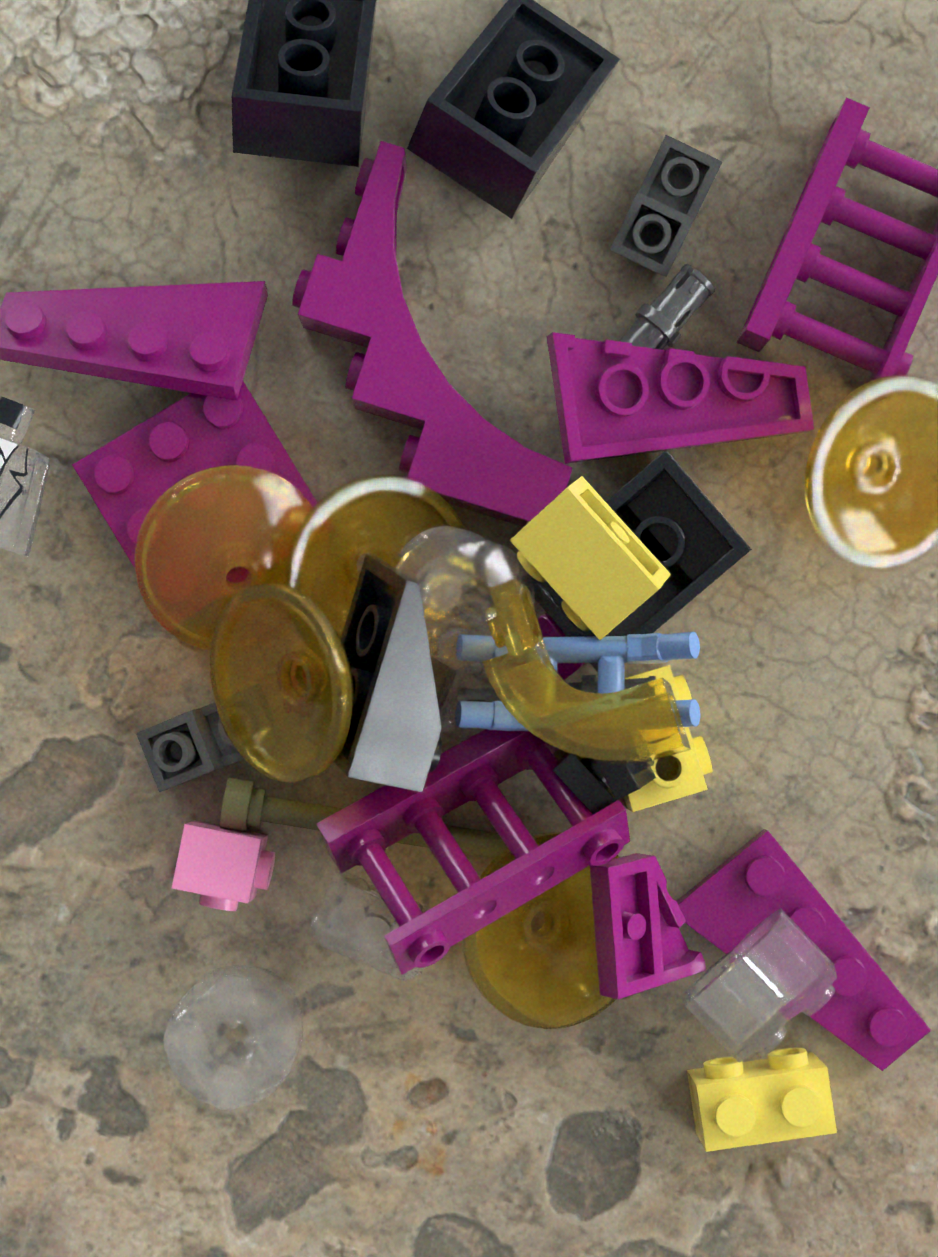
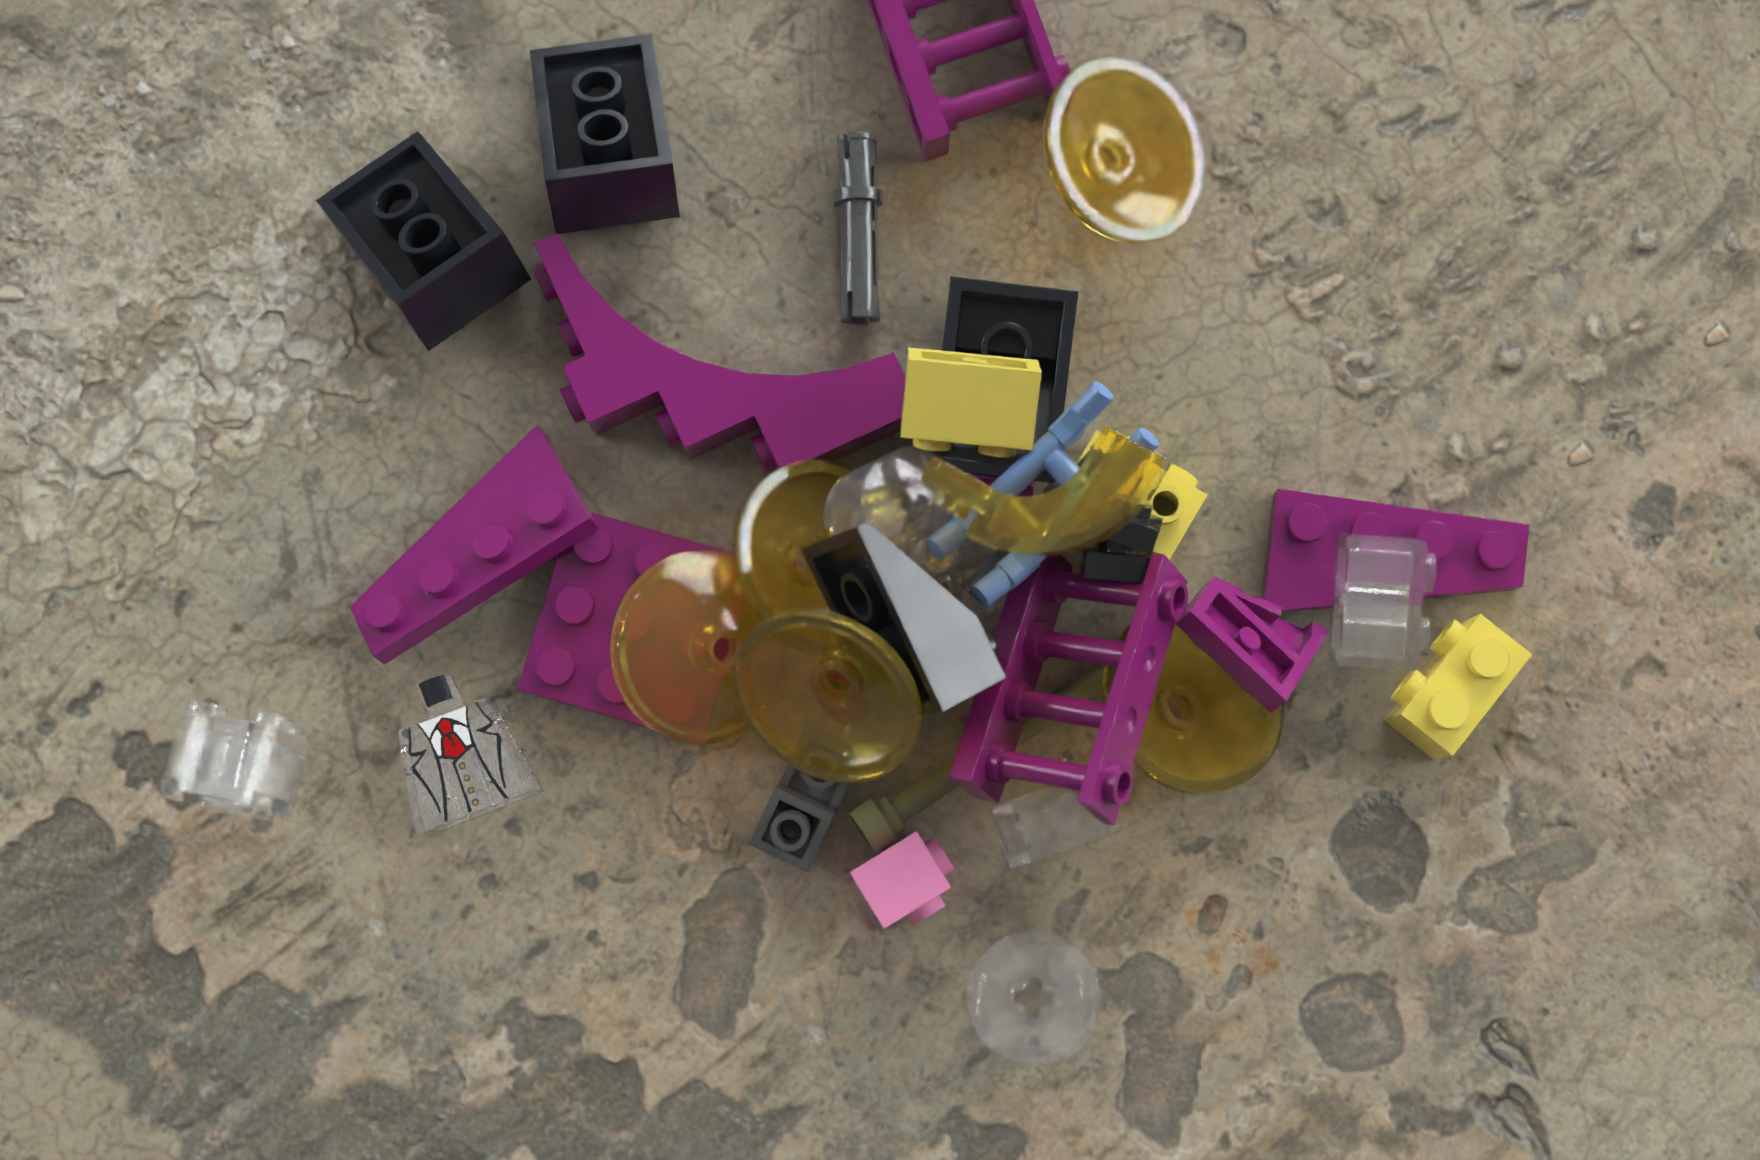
camera: 40 degrees left, 5 degrees down
(655, 400) = (903, 255): magenta wing -> none
(666, 205) = (783, 108): dark grey slope -> none

